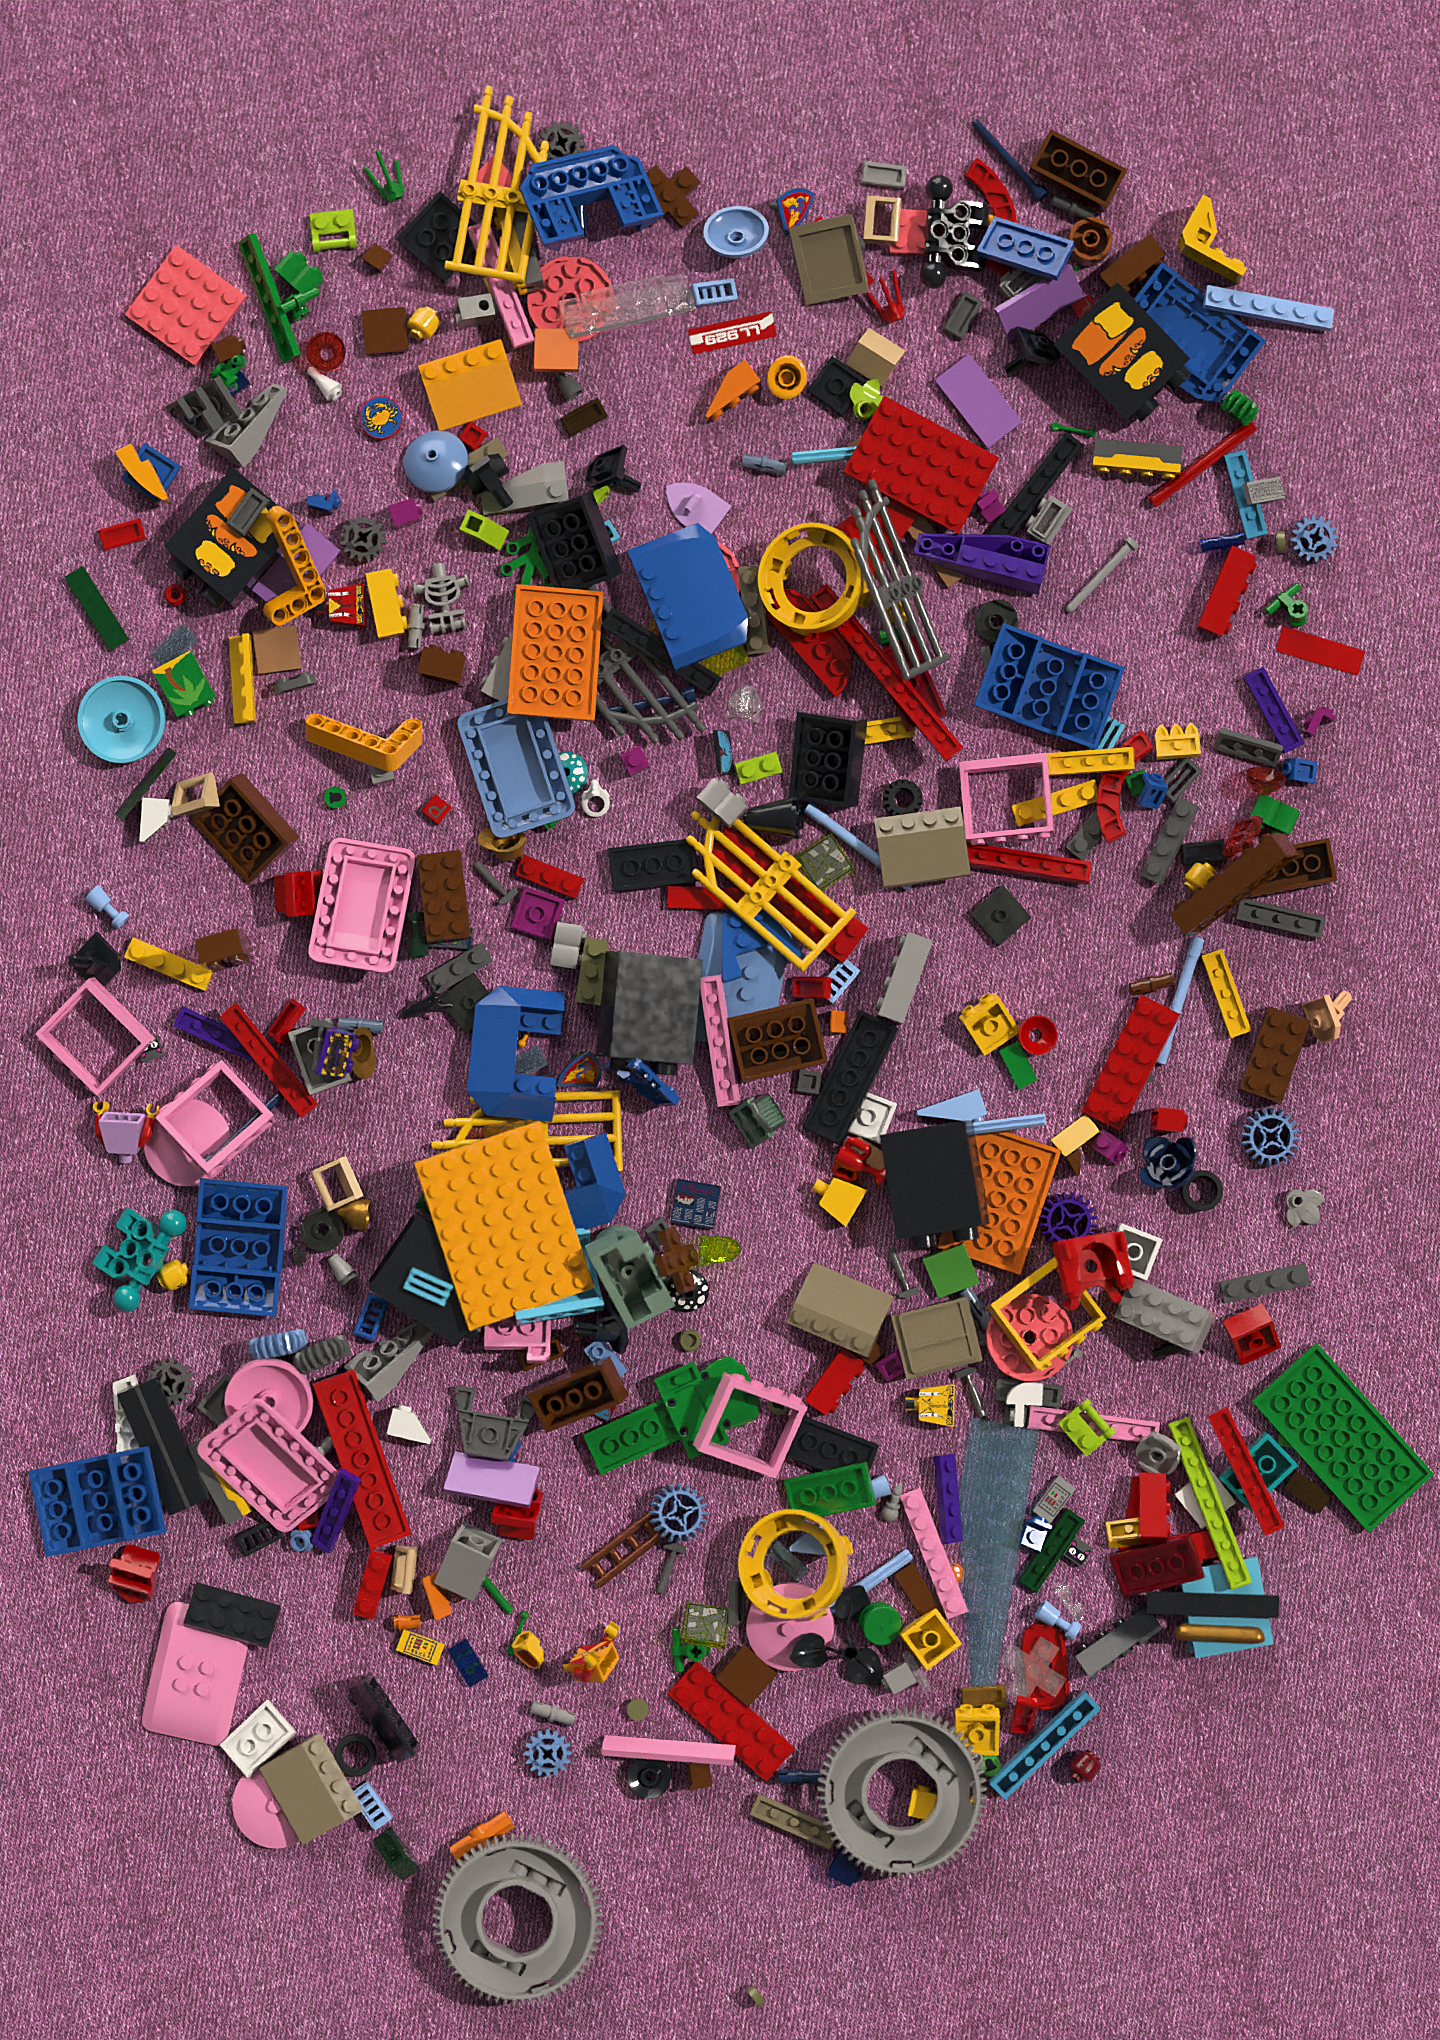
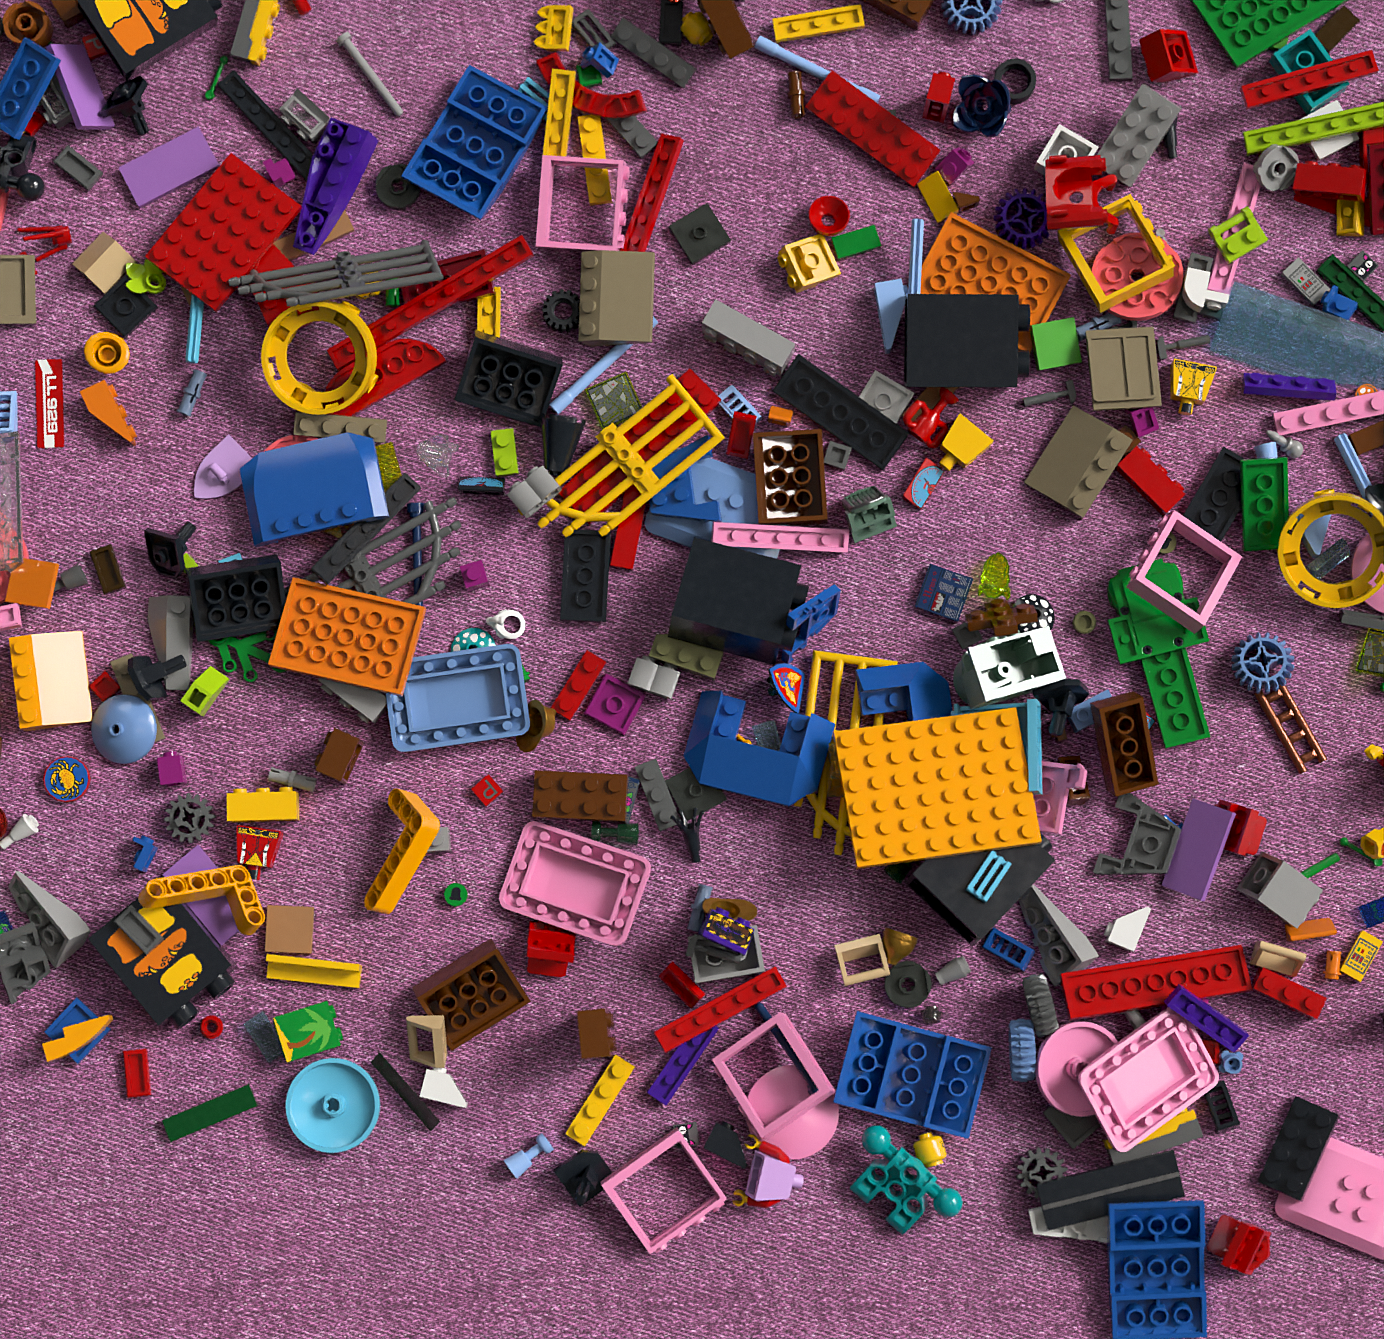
camera: 80 degrees left, 5 degrees down
(147, 1086) = (726, 1144): none -> black slope
(302, 681) = (327, 906): dark grey plate -> none
(440, 578) = (246, 745): light grey piece -> none
(507, 897) = (574, 744): dark grey piece -> none
(669, 1565) = (1315, 684): dark grey piece -> none
(795, 1167) = (923, 484): none -> slope
(986, 654) = (432, 201): dark grey tile -> none

